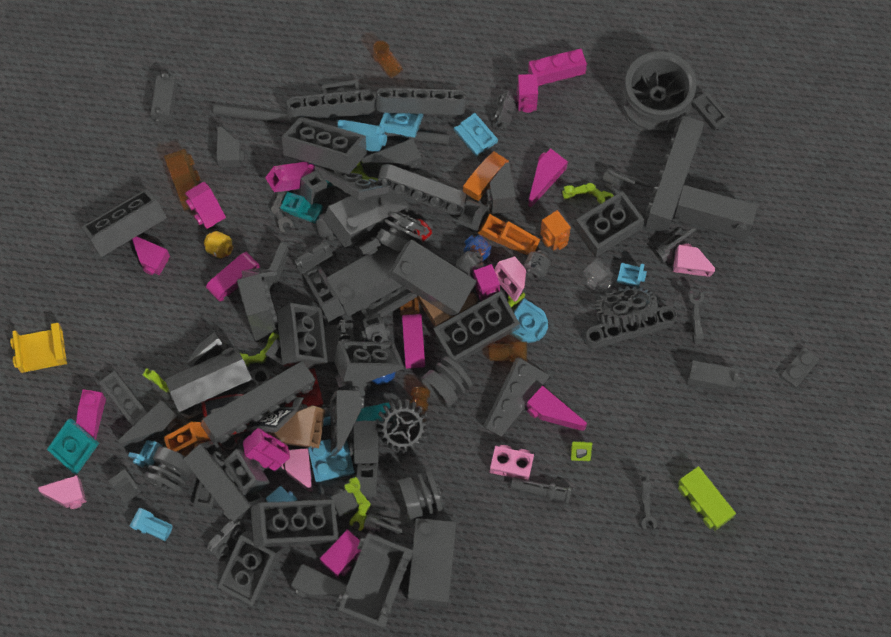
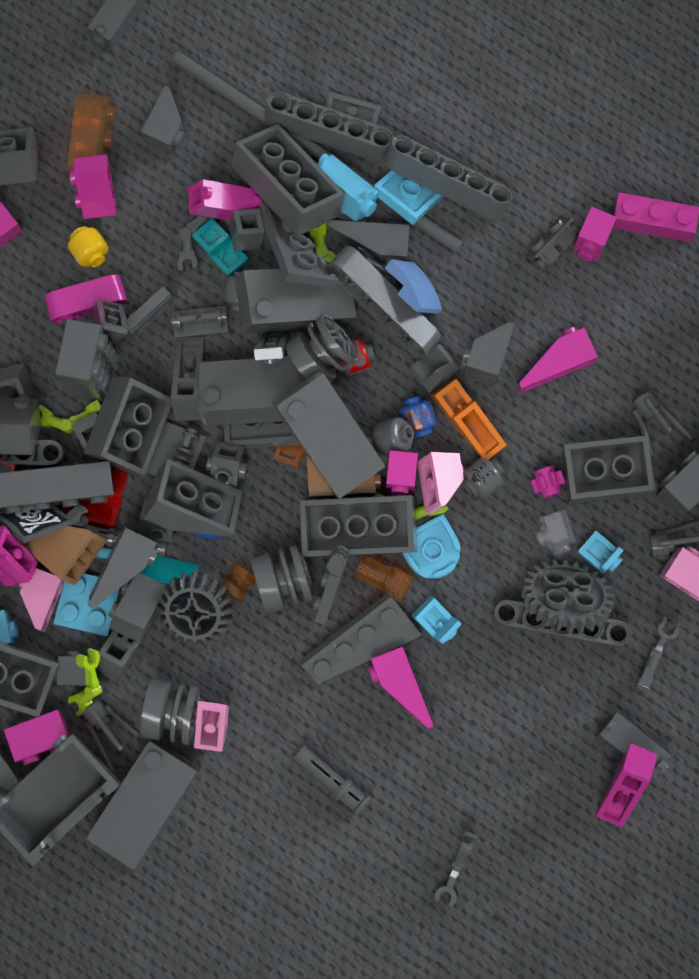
camera: 30 degrees right, 10 degrees up
(386, 59) = (434, 96): clear orange piece -> none
(413, 341) = (269, 500): dark pink beam -> none
(436, 172) = (417, 288): none -> medium blue slope
(450, 489) = (211, 726): none -> bright pink slope
(475, 134) = (497, 258): medium azure plate -> none
(479, 368) = (331, 583): none -> dark grey hinge
(483, 175) = (480, 320): orange slope -> none
(510, 468) = (307, 732): bright pink brick -> none
(554, 362) = (436, 620): none -> medium azure bracket
(555, 231) = (529, 446): orange brick -> none
(577, 248) = (548, 482): none -> dark pink gear
(581, 451) = (408, 757): lime slope -> none
(590, 188) = (611, 408): lime piece -> none
(705, 499) = (535, 903): lime brick -> none
(722, 399) = (627, 785): none -> dark pink slope

